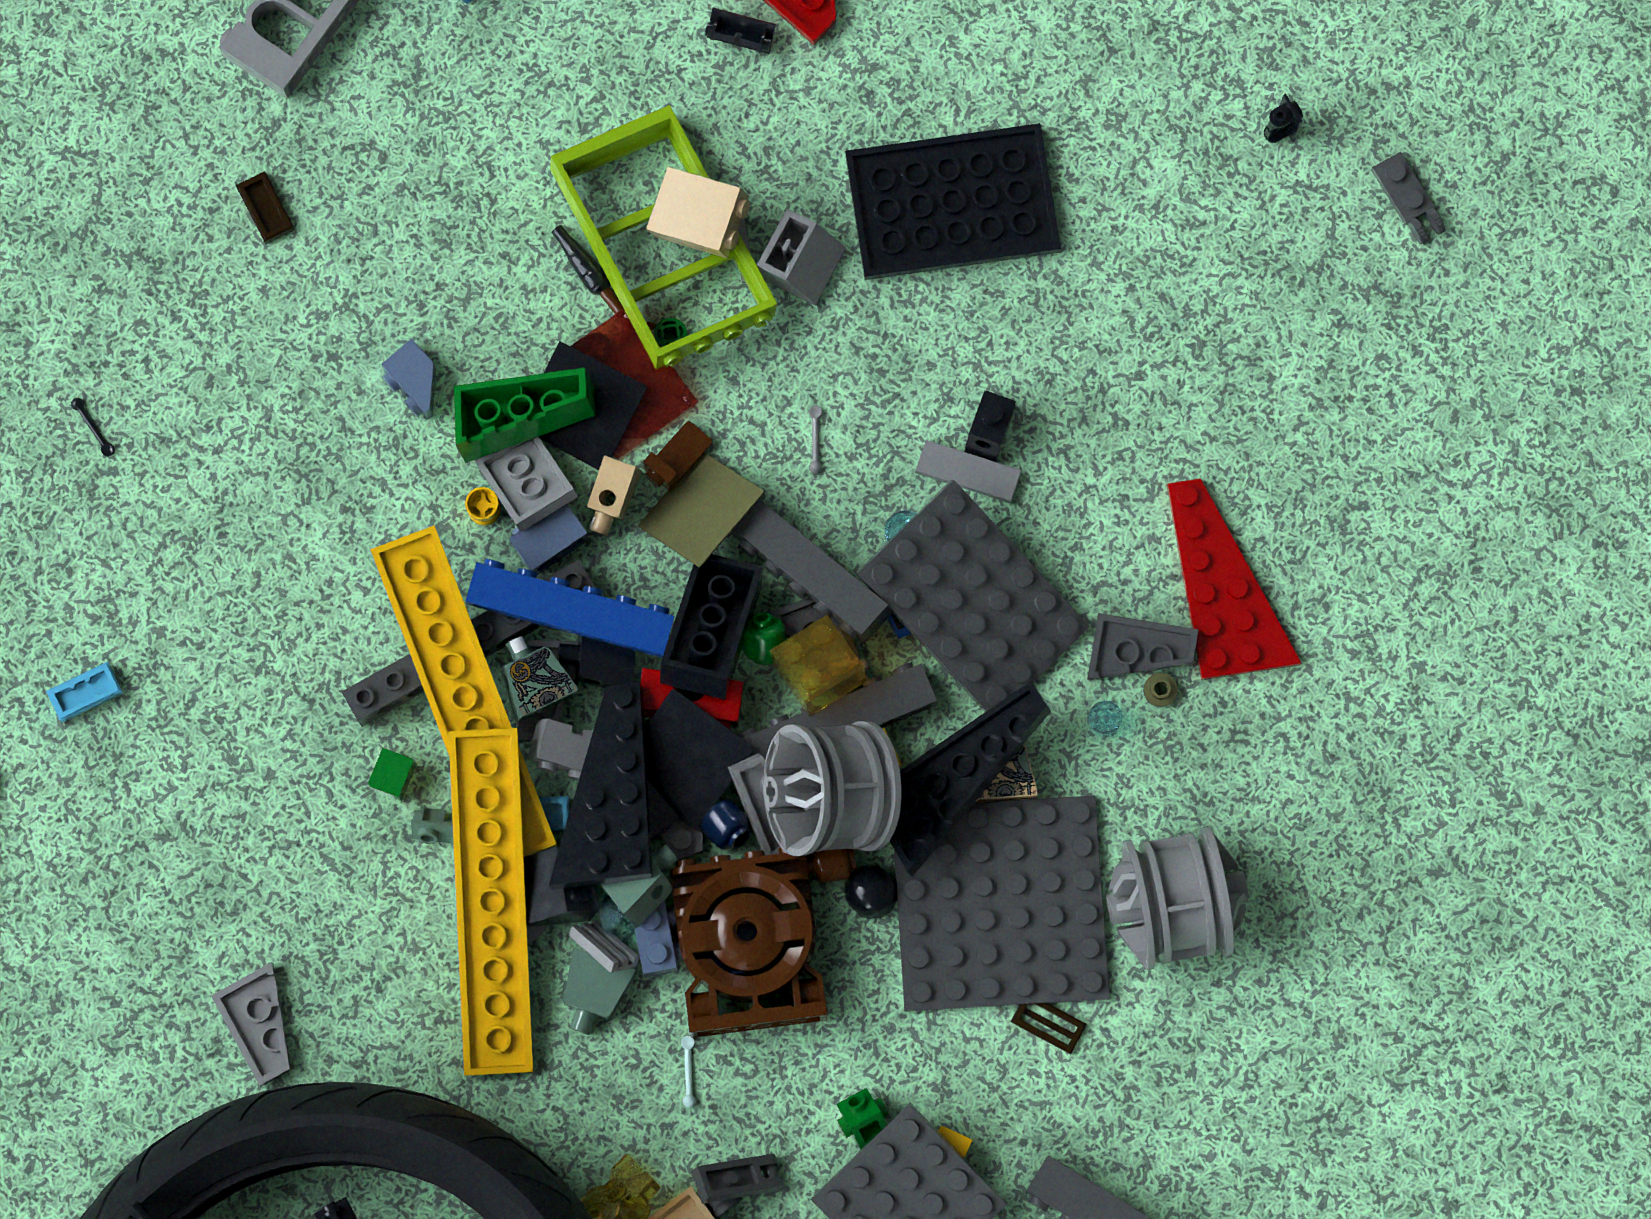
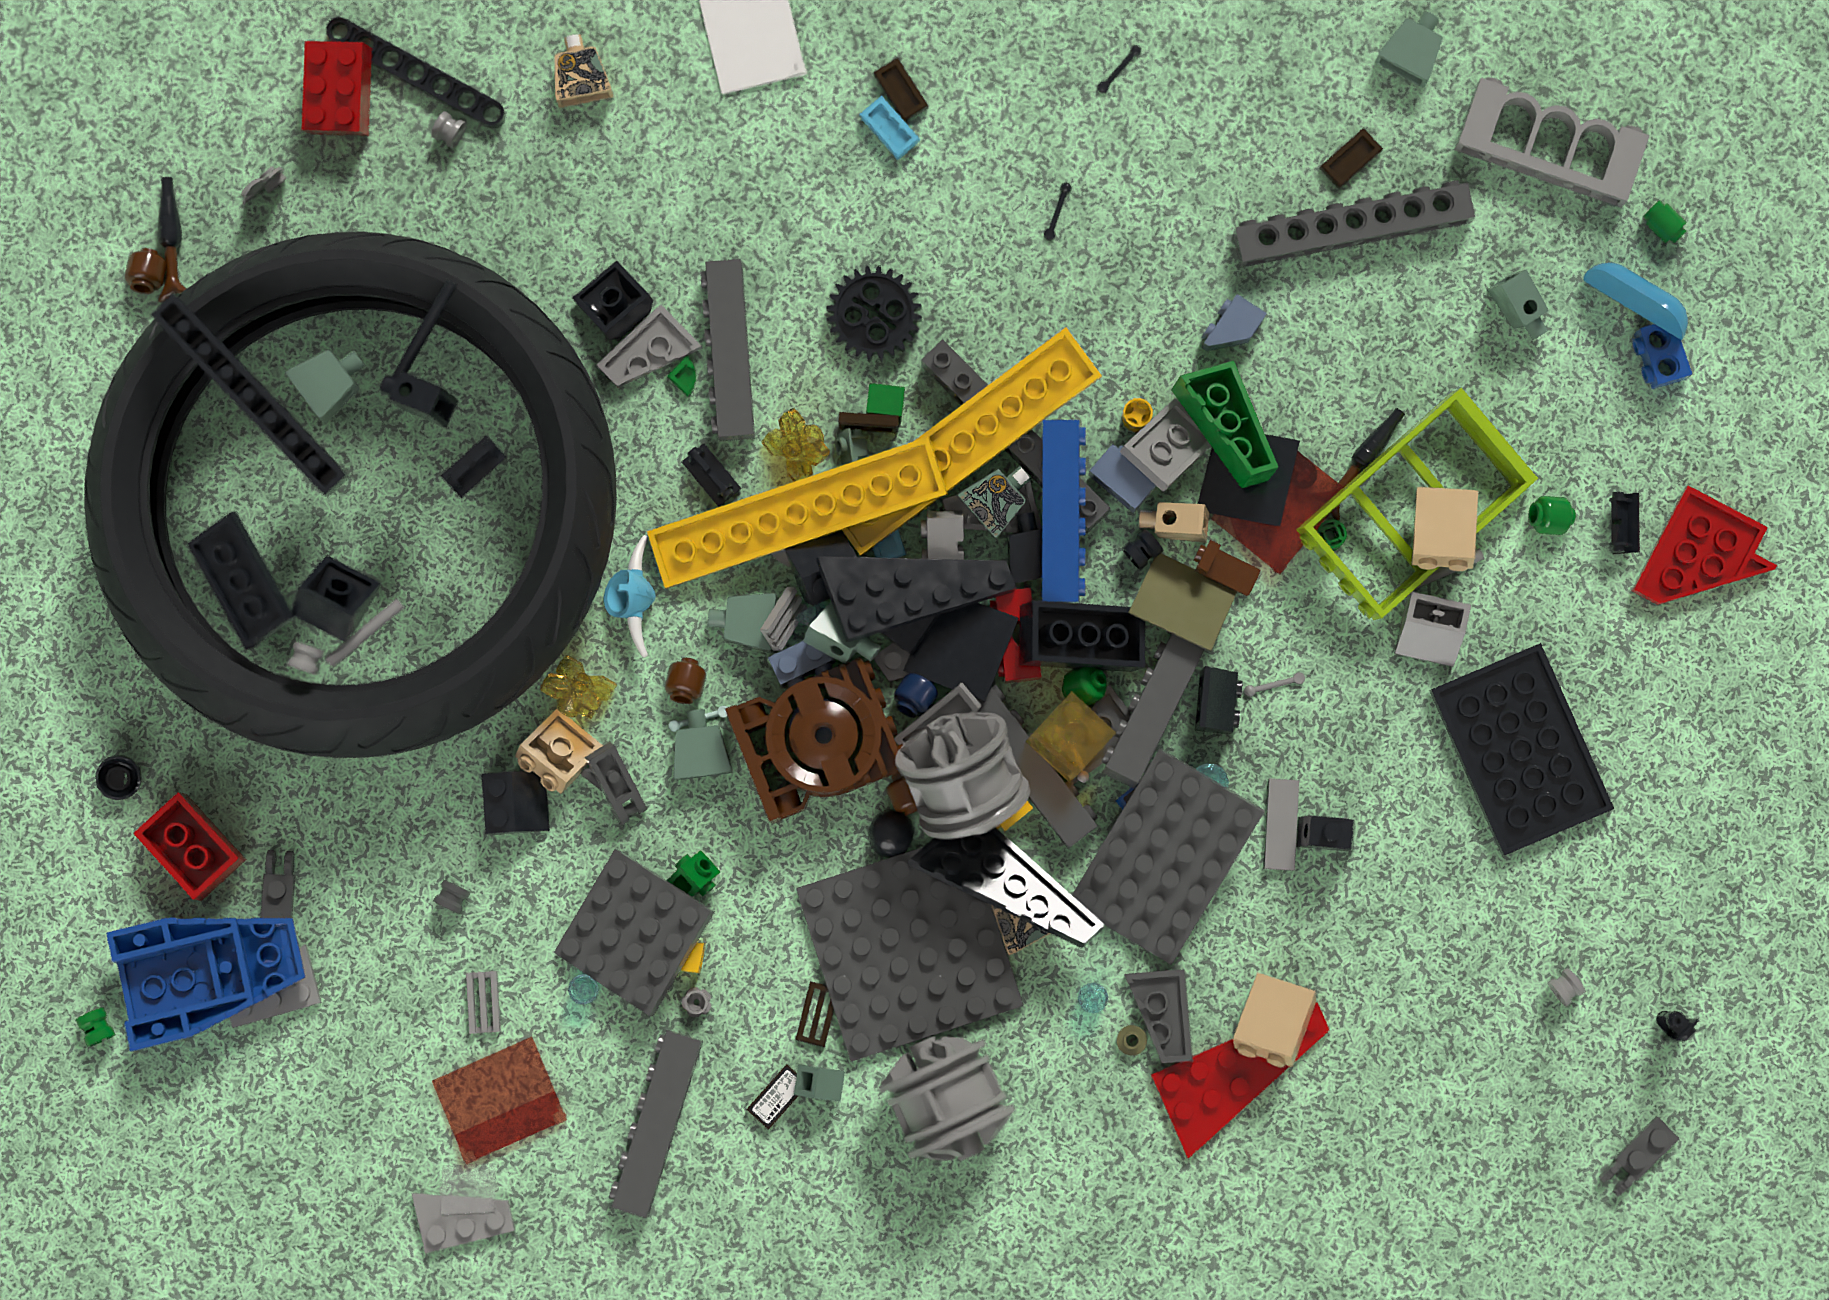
camera: 80 degrees right, 5 degrees up
(44, 669) = (900, 89): none -> dark brown tile
(166, 110) = (1412, 49): none -> sand green torso
(192, 1047) = (614, 301): none -> black slope
(254, 549) = (1049, 233): none -> black hinge
(285, 932) = (729, 350): none -> dark grey brick
(299, 991) = (684, 376): none -> green tile
(308, 785) = (890, 293): none -> black gear
(341, 109) = (1253, 252): none -> dark grey brick
(409, 798) = (869, 422): none -> dark brown tile
(412, 880) = (798, 443): none -> clear yellow plant
(419, 989) = (710, 474): none -> black hinge
(474, 72) = (1513, 294): none -> sand green torso
(531, 1111) = (630, 595): none -> medium azure helmet
(631, 539) = (1142, 549): none -> black wheel
(643, 1074) = (685, 681): none -> reddish brown head
(711, 103) = (1551, 515): none -> green head
(724, 1077) = (700, 749): none -> sand green torso
(818, 503) = (1217, 701): none -> black slope
(1000, 1143) = (688, 1002): none -> light grey plate
(1125, 1037) = (819, 1083): none -> sand green brick
(1128, 1089) = (775, 1098): none -> tile
(1177, 531) = (1274, 1020): none -> tan brick
(1215, 222) = (1566, 987): none -> light grey wheel

